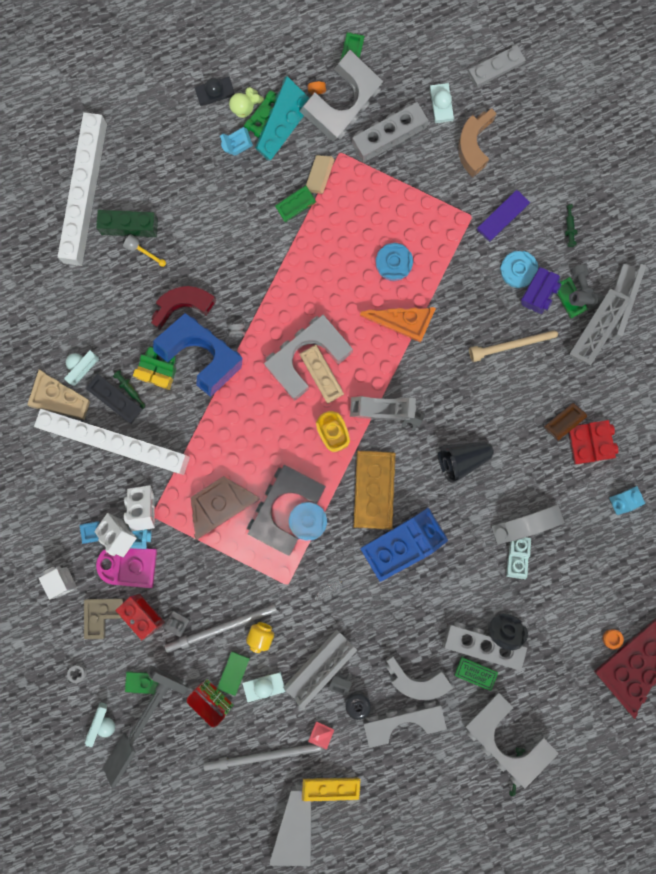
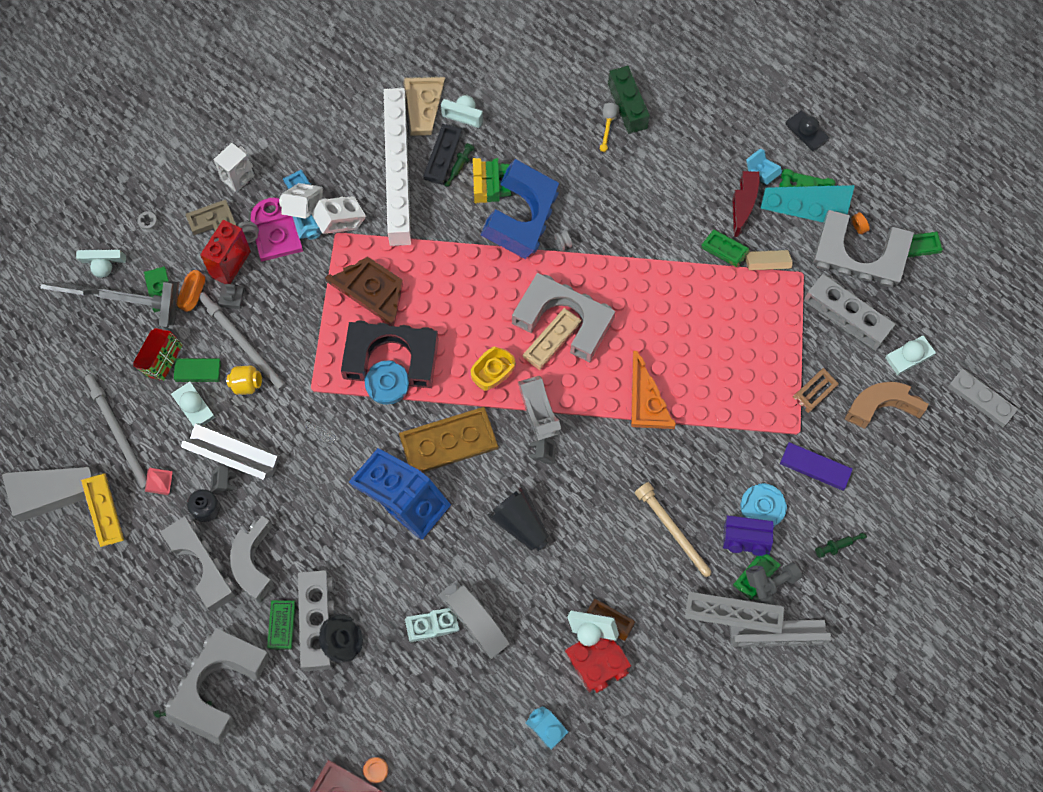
camera: 65 degrees right, 15 degrees down
(82, 189) = (644, 48): white brick -> none
(123, 590) = (250, 230): none -> light grey plate
(159, 656) = (191, 290): none -> orange tile
(182, 297) = (572, 174): dark red arch -> none
(243, 104) = (805, 159): yellowish green piece -> none
(260, 169) = (744, 200): none -> dark red slope
(394, 262) = (708, 367): dark azure tile -> none
(449, 201) = (804, 400): none -> medium nougat tile
(571, 437) = (592, 627): none -> light aqua tile

